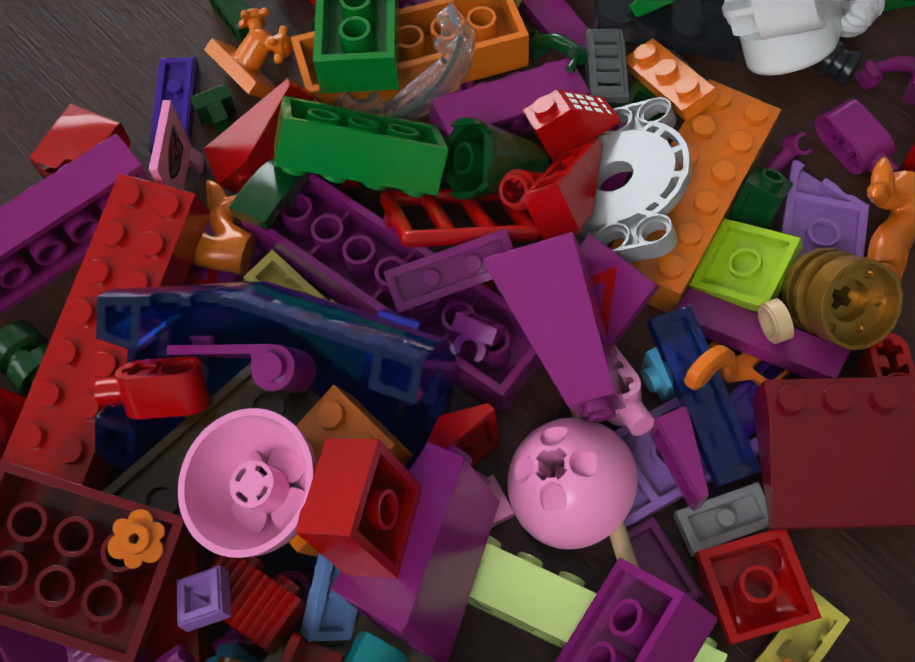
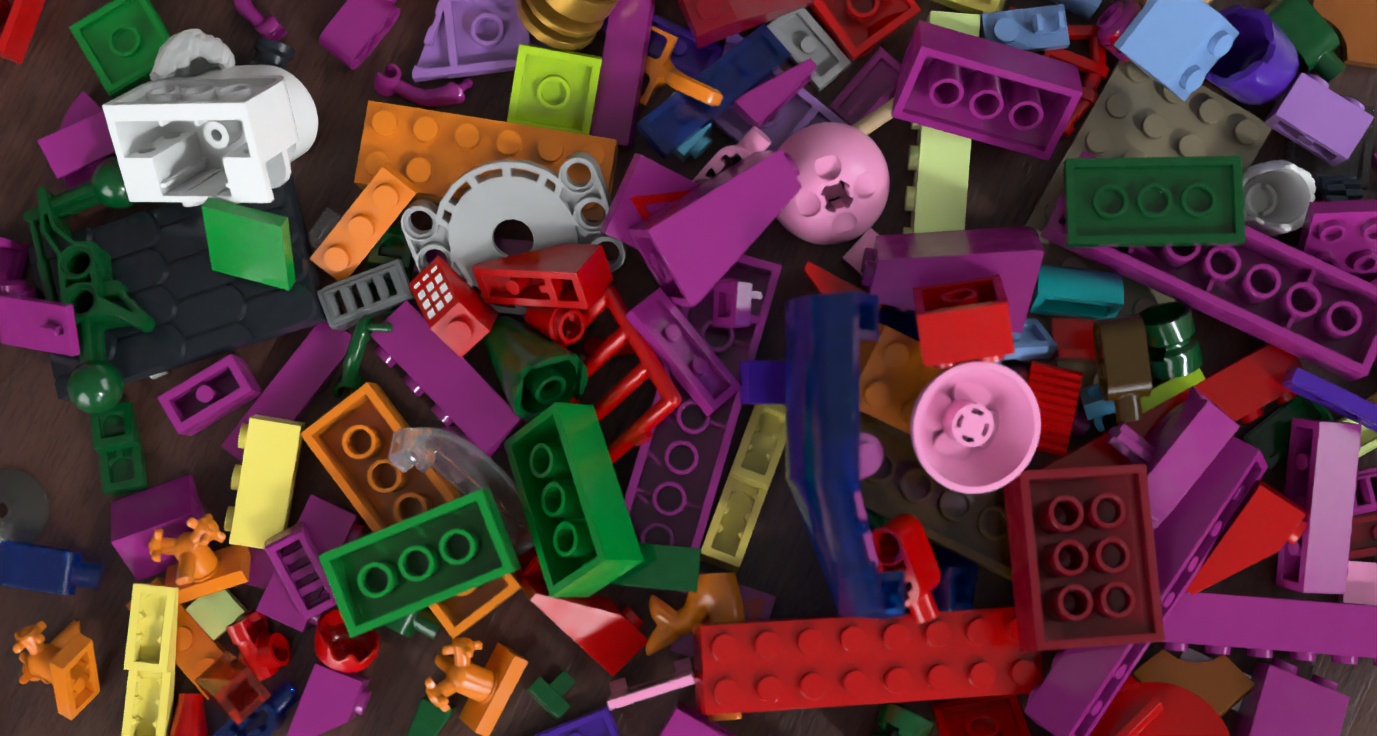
camera: 110 degrees left, 20 degrees up
(148, 547) = (1041, 503): orange plant -> none
(203, 598) = (1068, 435): medium lavender tile -> none
(760, 197) = (470, 95): dark green bracket -> none
(775, 321) = (616, 46): tan tile -> none

